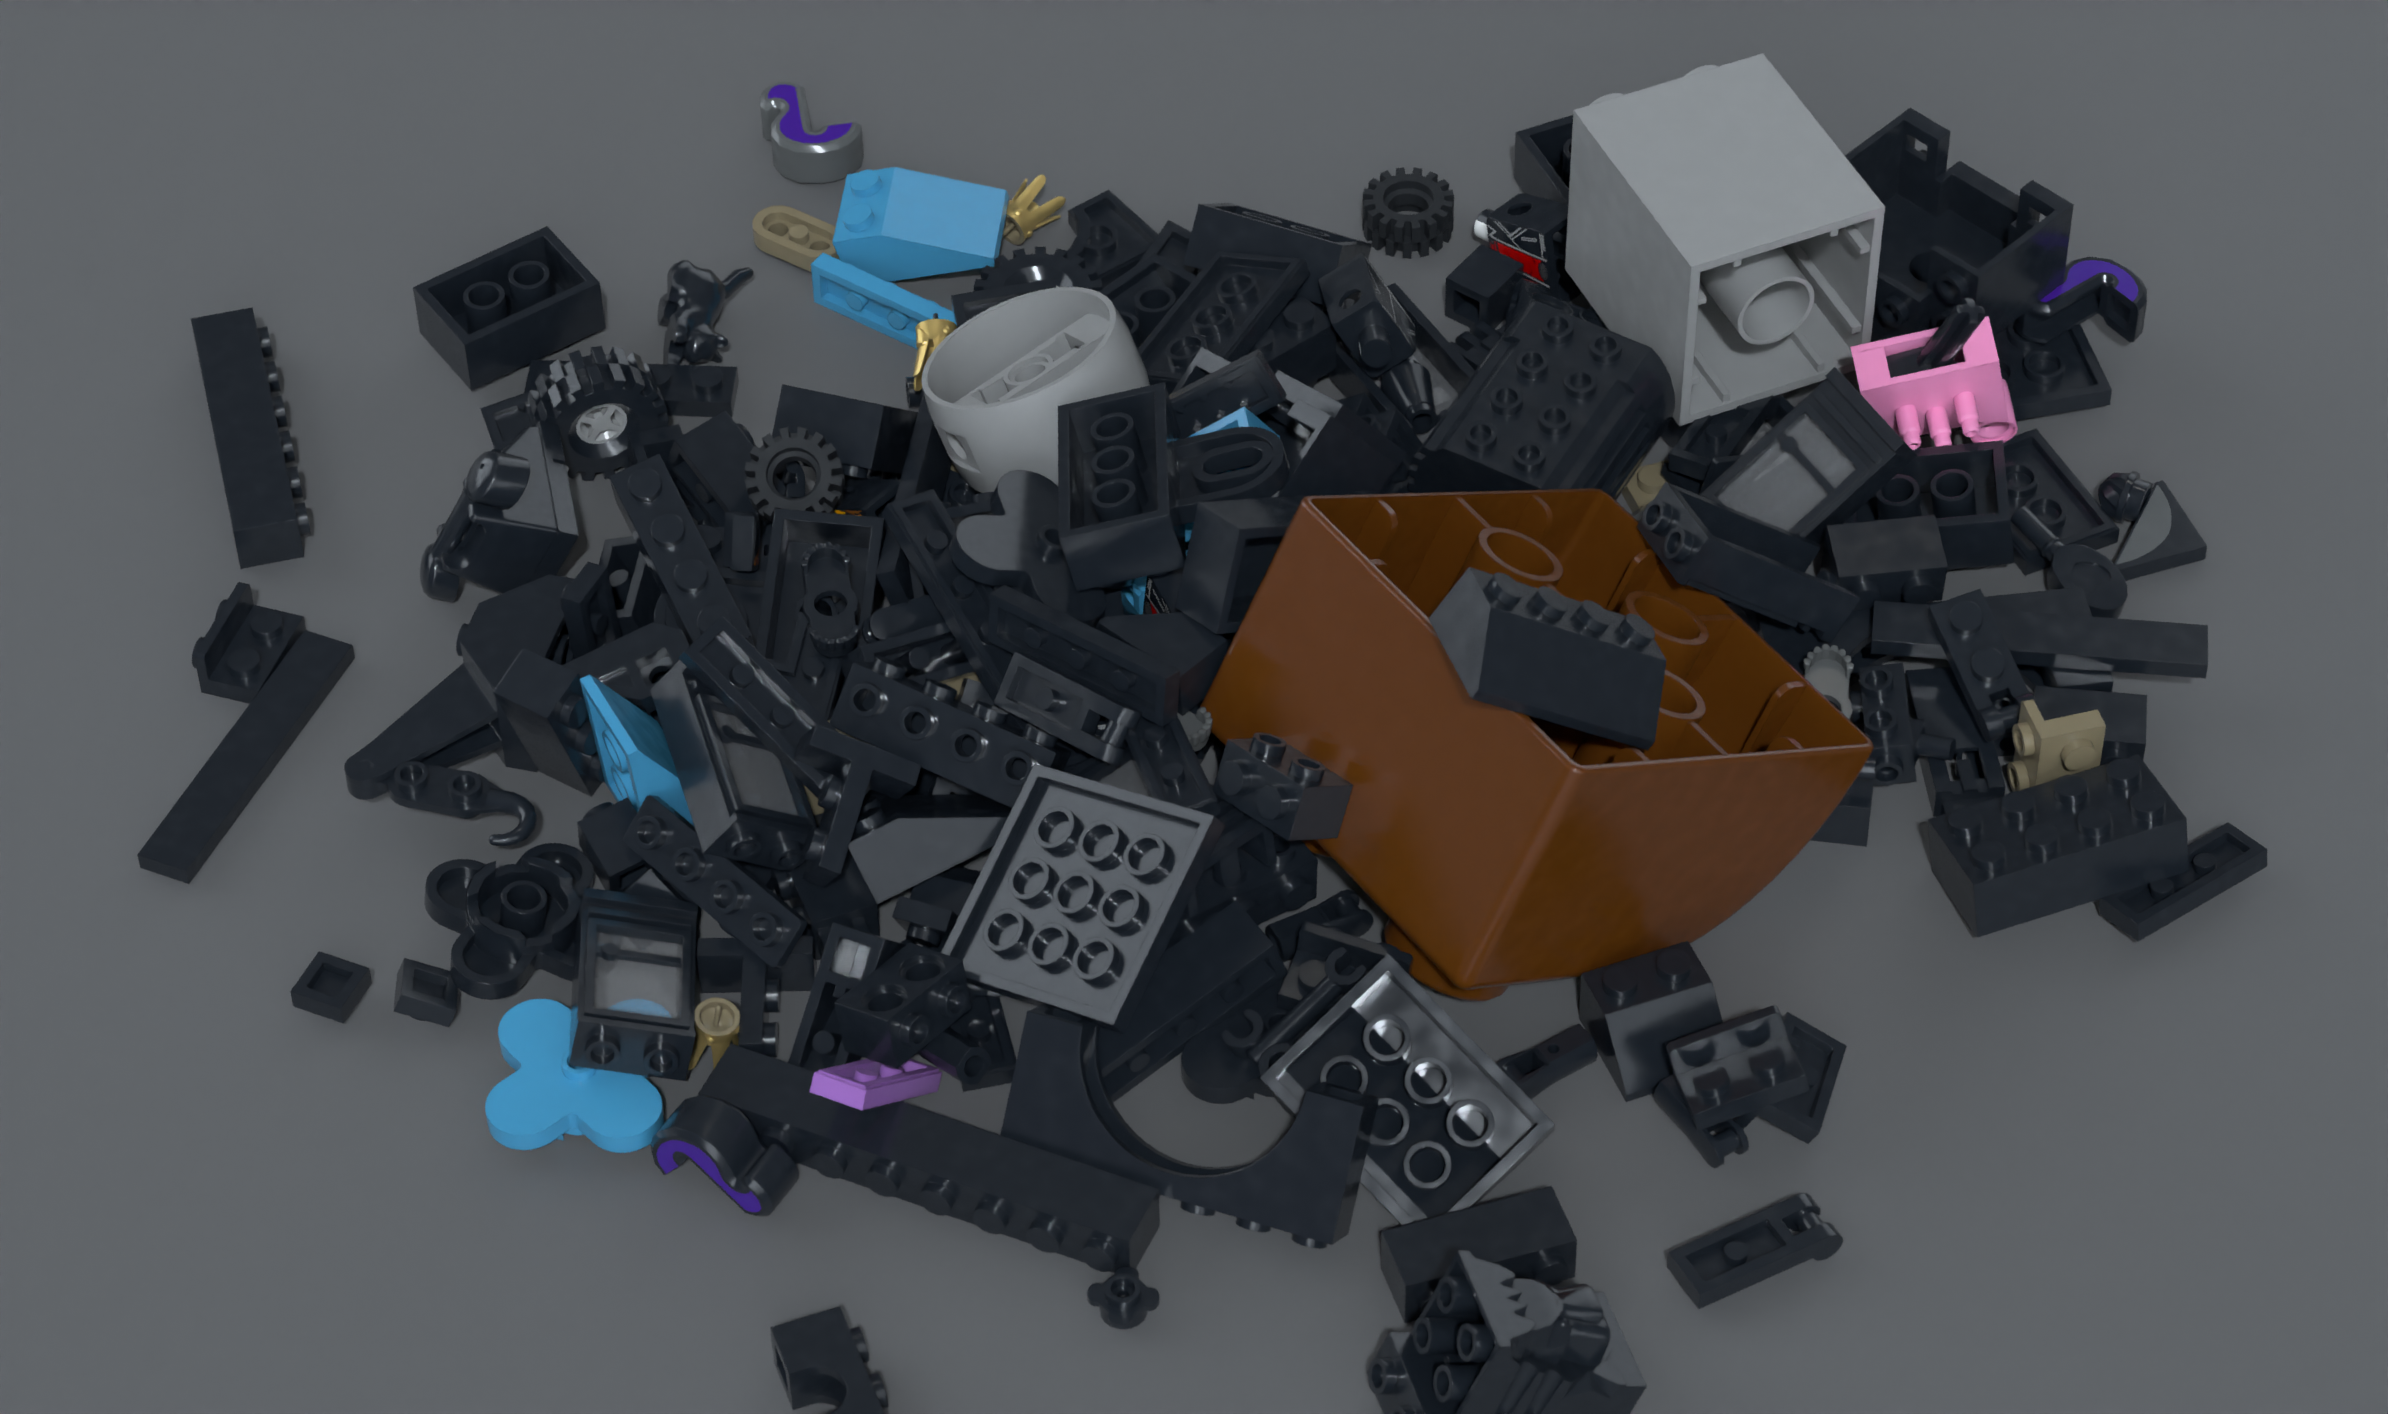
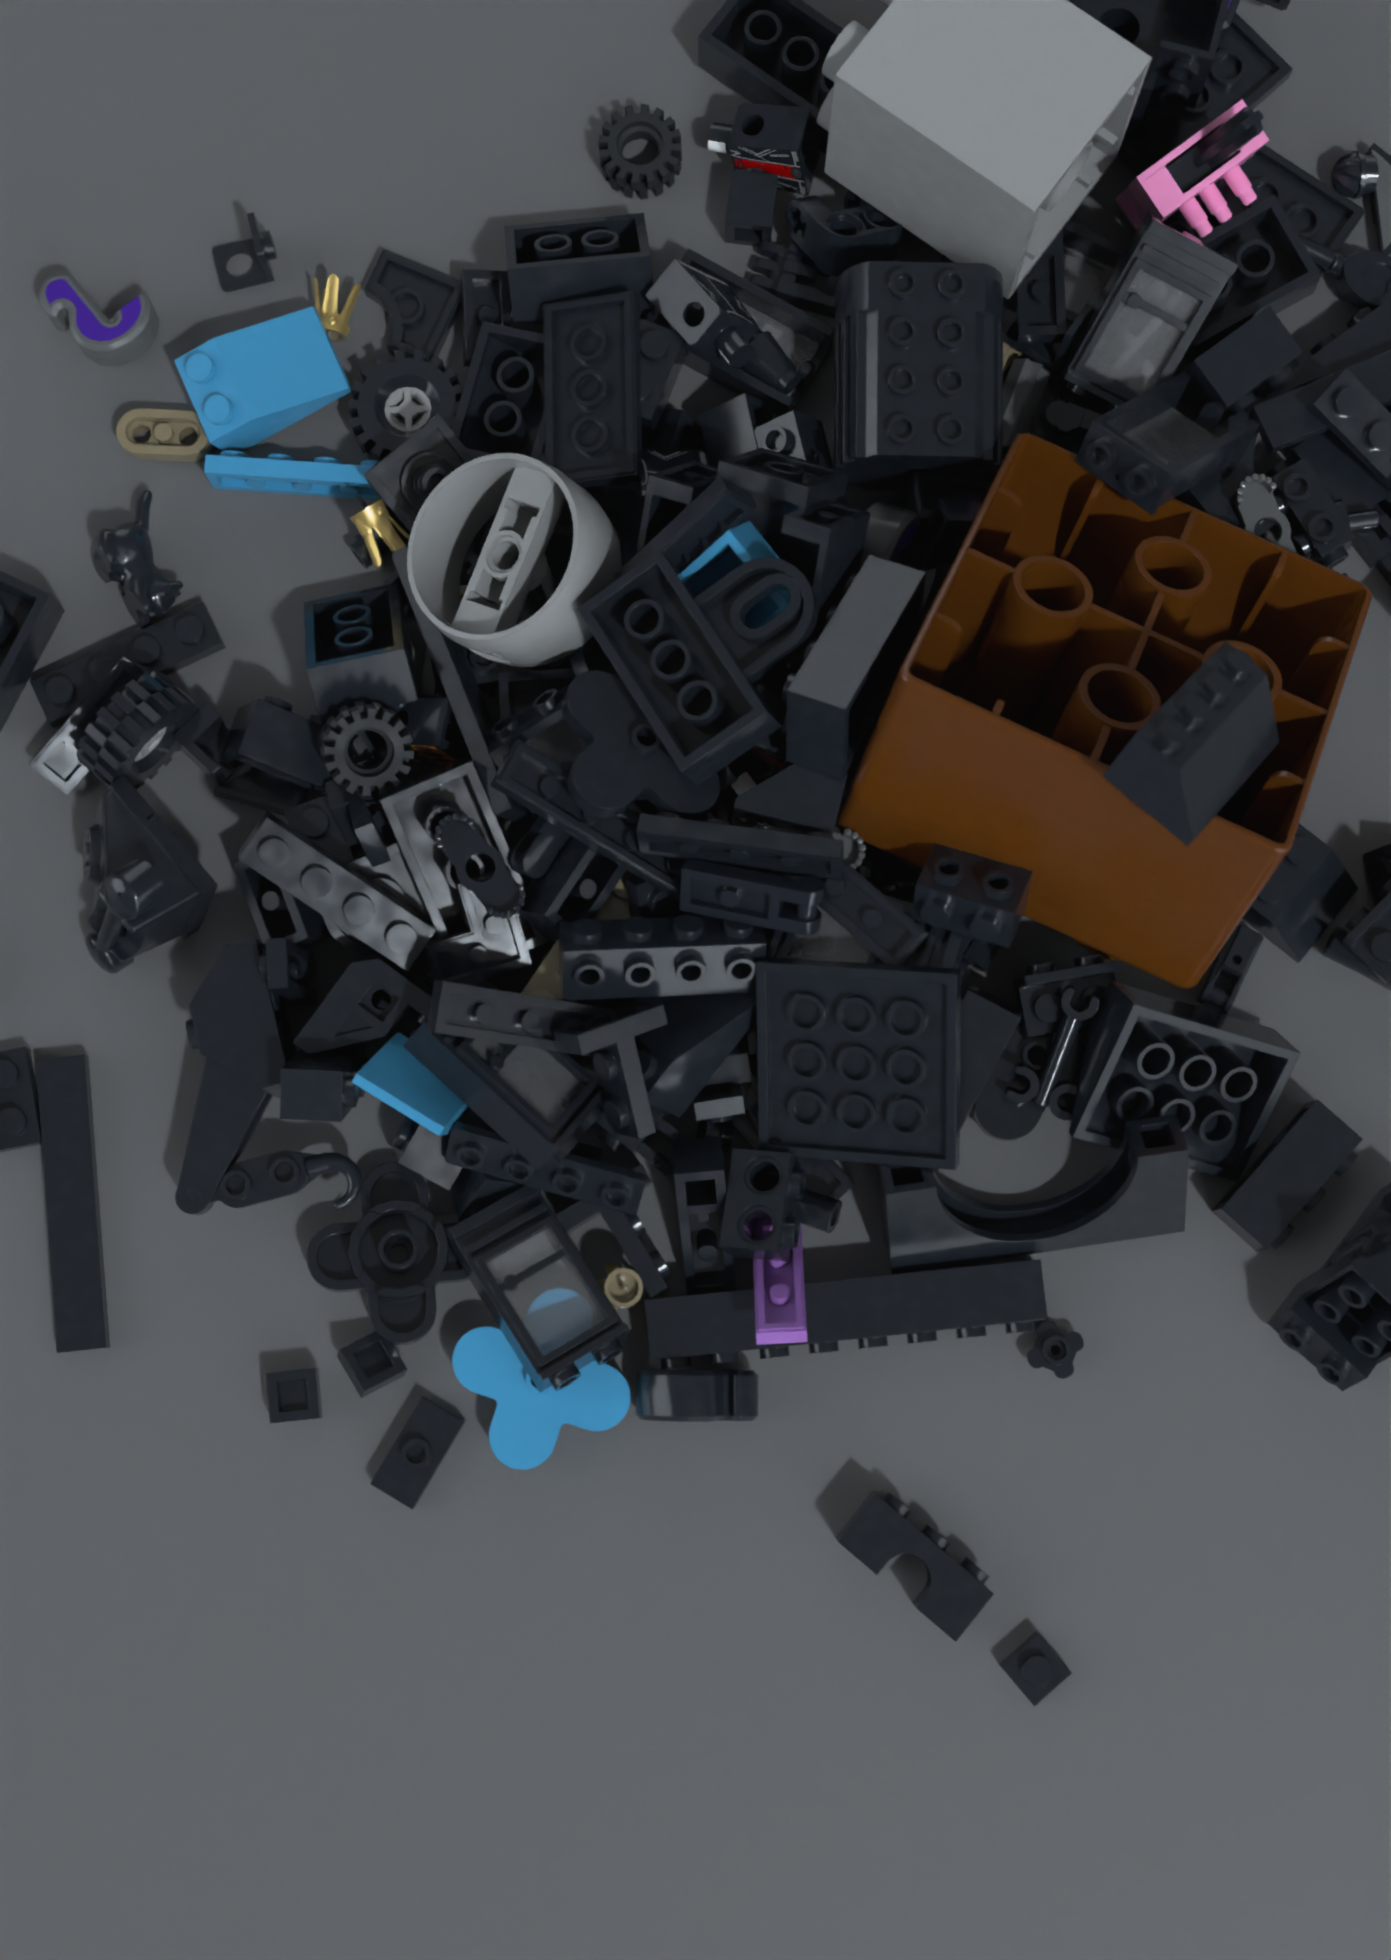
camera: 30 degrees left, 35 degrees up
(412, 1092) = (417, 1452): none -> black plate
(991, 147) = (259, 249): none -> black bracket

